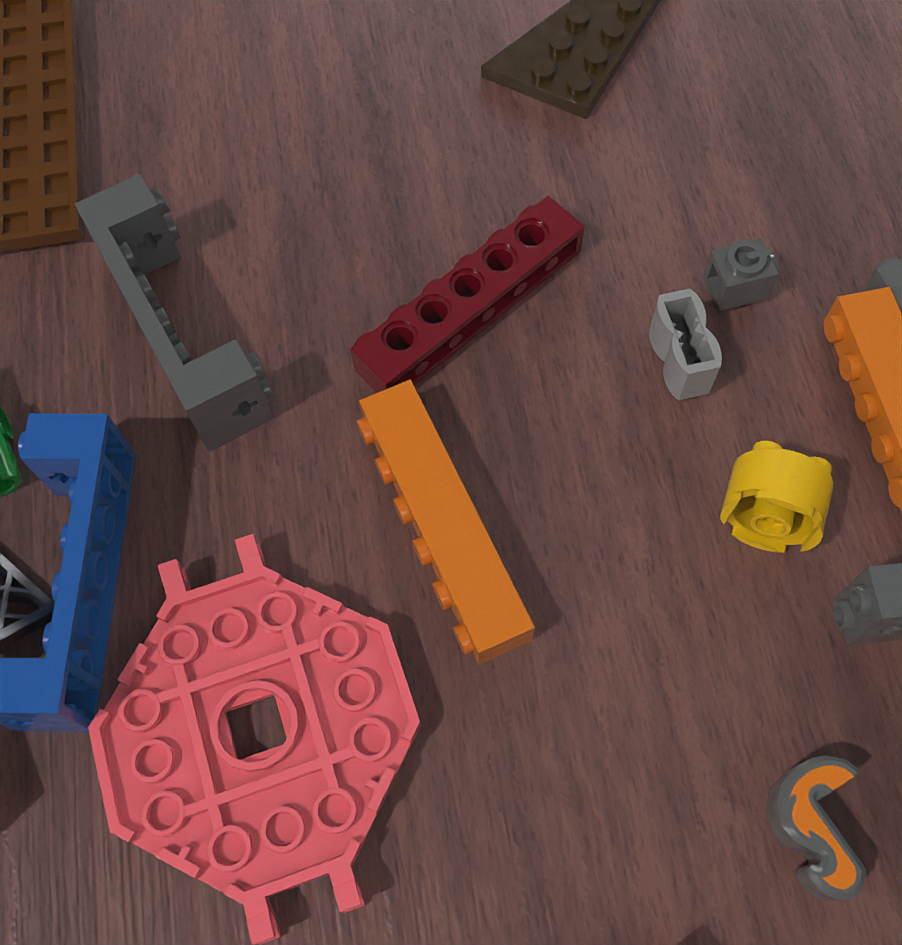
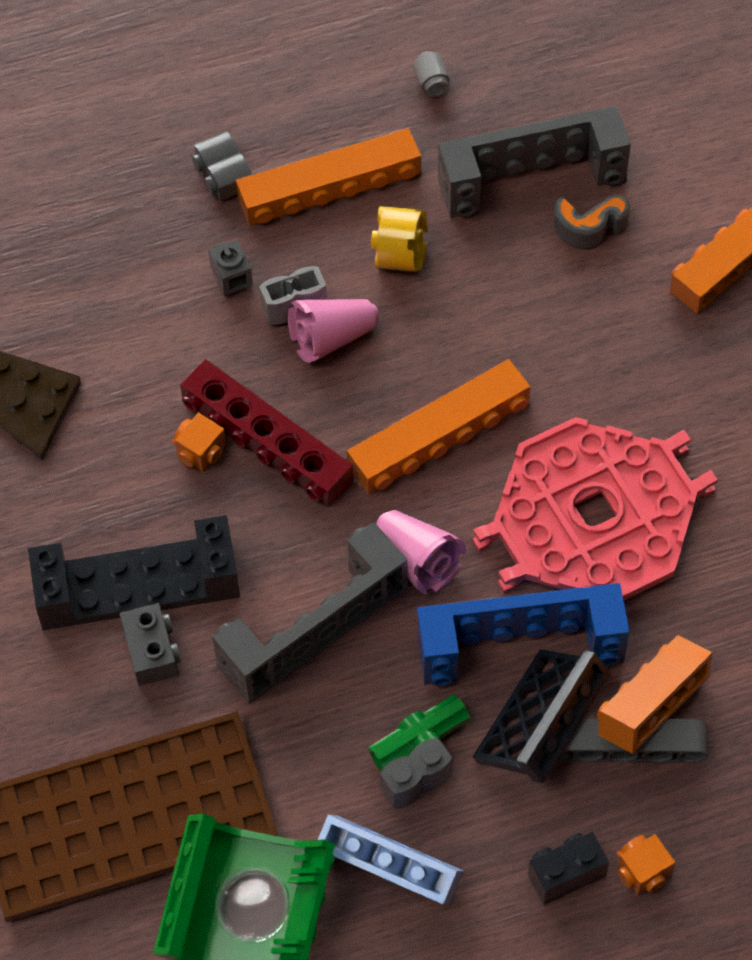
camera: 100 degrees left, 5 degrees down
(193, 153) = (149, 644): none -> dark grey brick
(241, 456) = (429, 550): none -> bright pink cone
(290, 183) = (131, 579): none -> black plate
(466, 219) = (199, 442): none -> orange brick
(630, 387) = (329, 324): none -> bright pink cone

